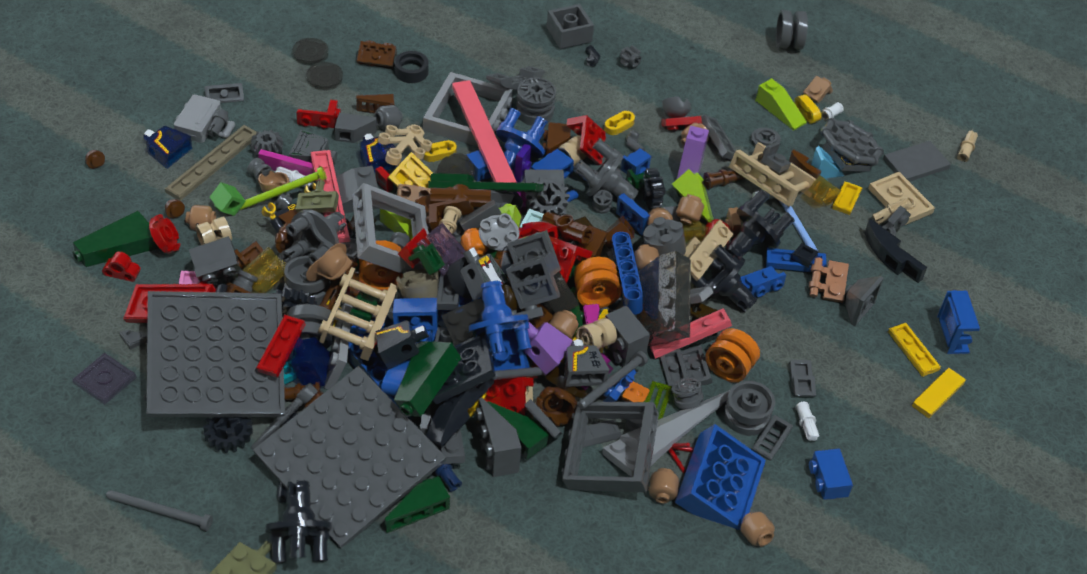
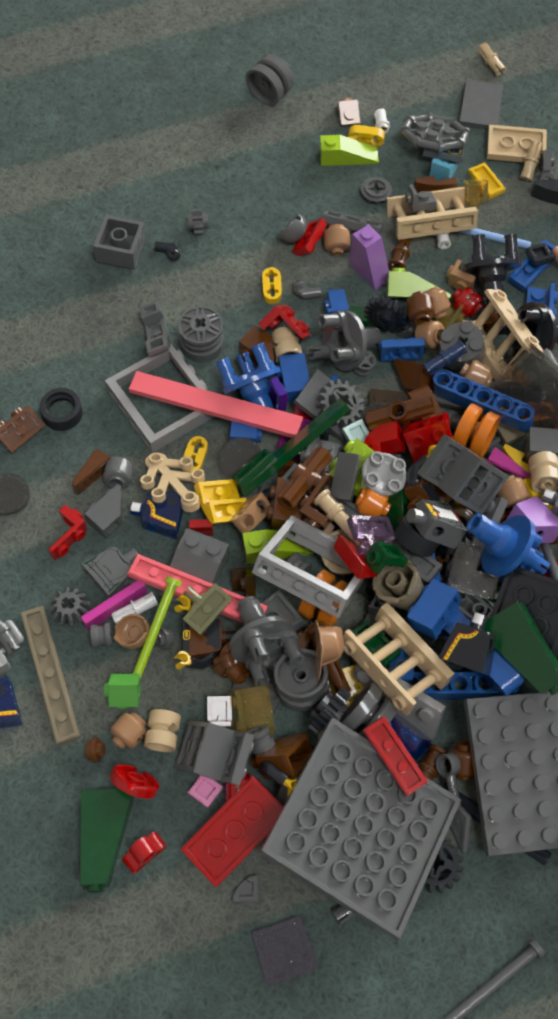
camera: 50 degrees left, 15 degrees up
(636, 227) = (445, 358): none -> dark blue pin
(670, 197) = (420, 307): none -> reddish brown head

